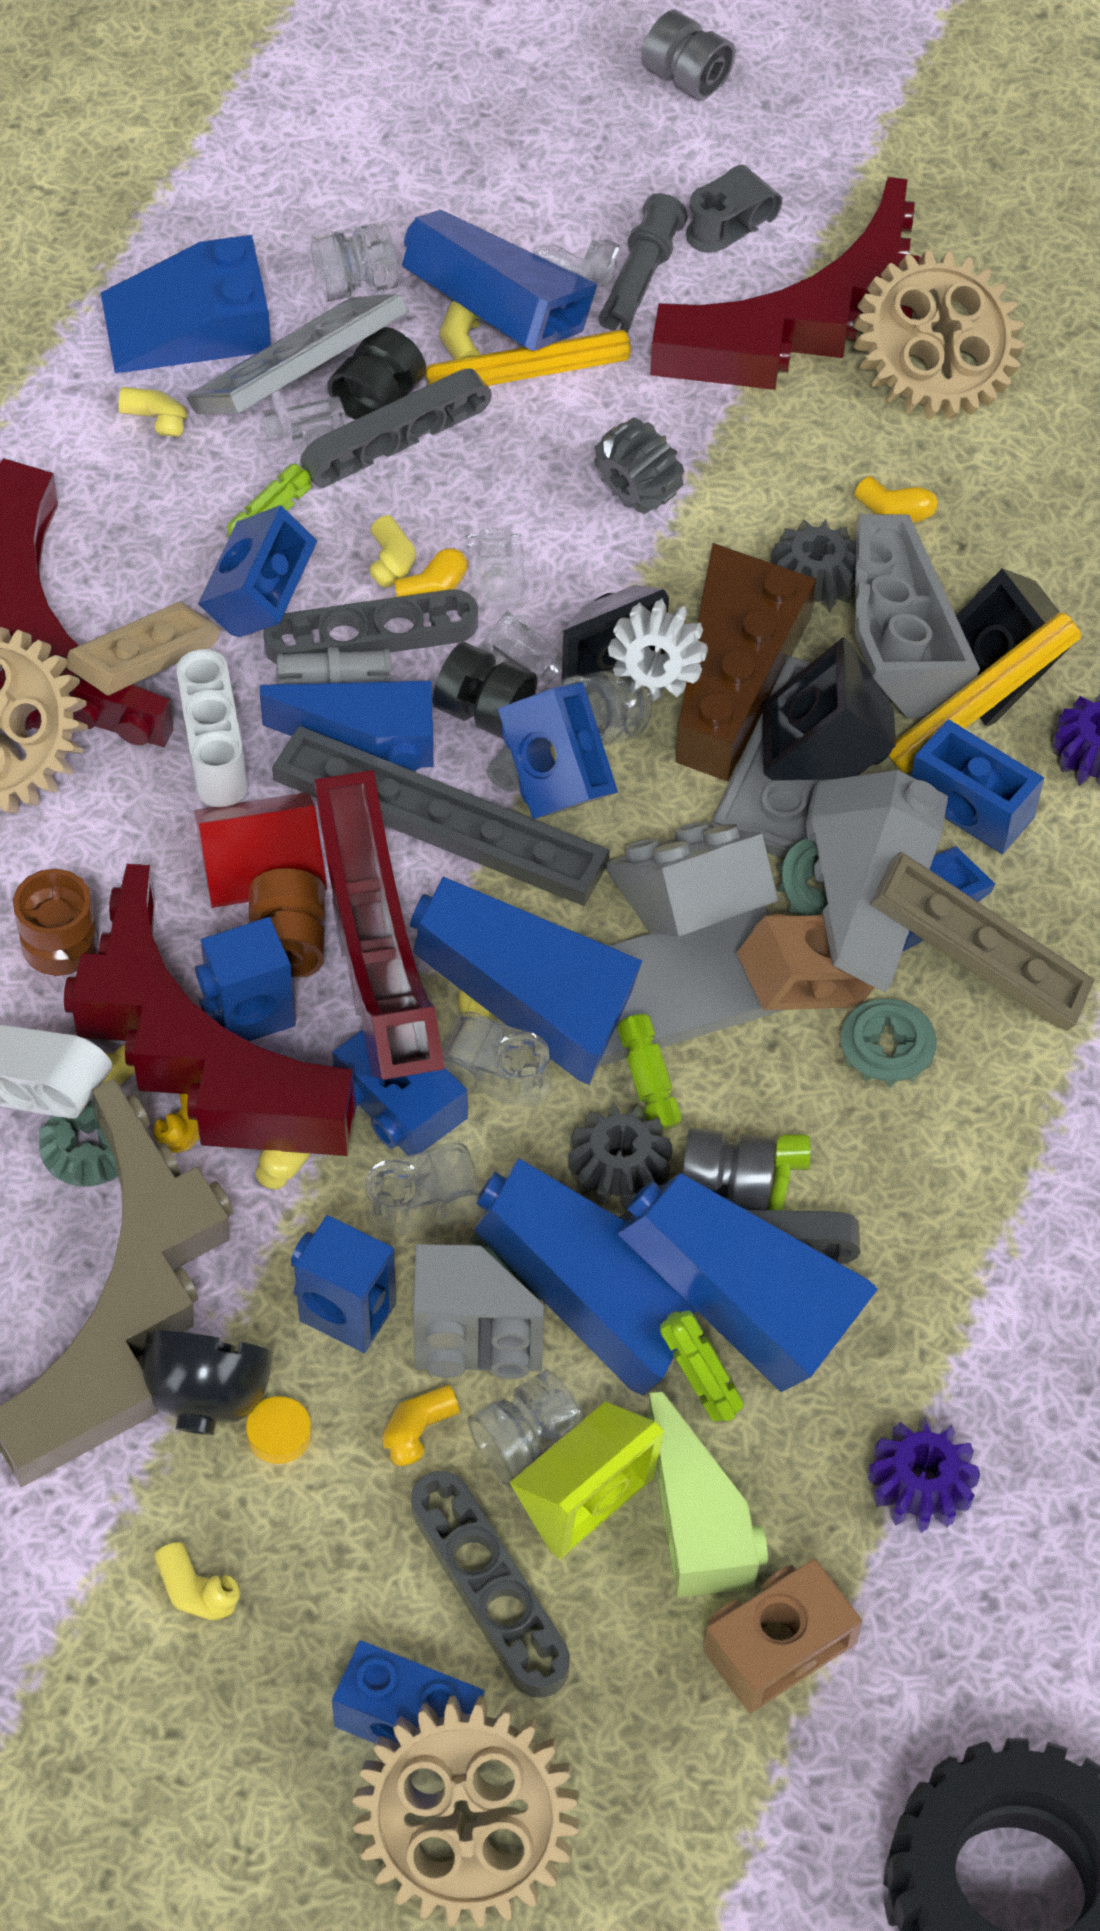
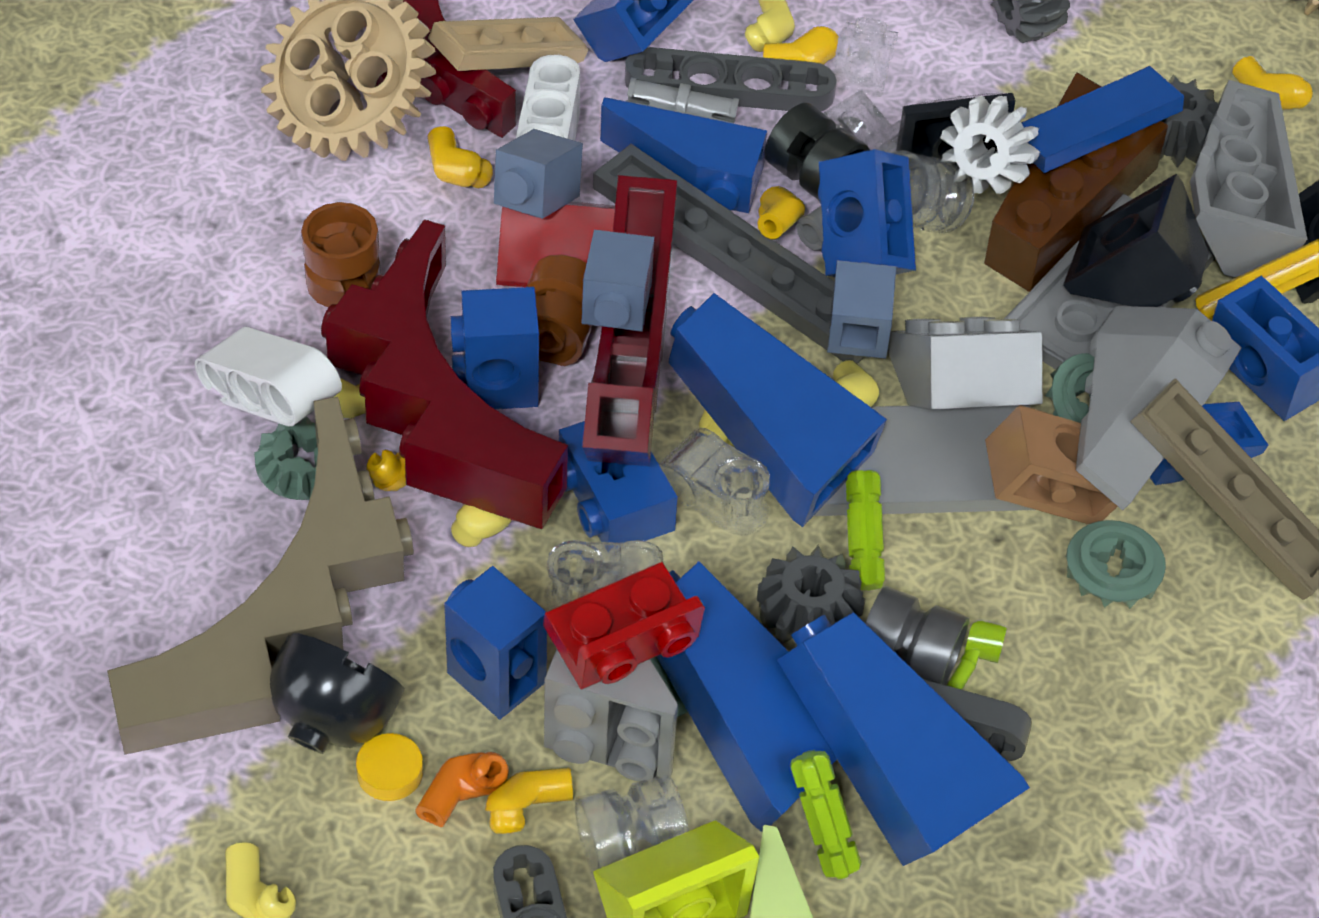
camera: 15 degrees right, 5 degrees down
(129, 790) = (455, 164): none -> yellow arm
(228, 790) = (537, 173): none -> sand blue brick
(350, 1424) = (461, 780): none -> orange arm
(351, 891) = (617, 280): none -> sand blue brick
(471, 762) = (778, 211): none -> yellow arm
(471, 1242) = (623, 626): none -> red bracket
(582, 849) = (861, 309): none -> sand blue brick
(594, 923) = (856, 381): none -> light yellow arm
(755, 589) = (1103, 117): none -> blue tile

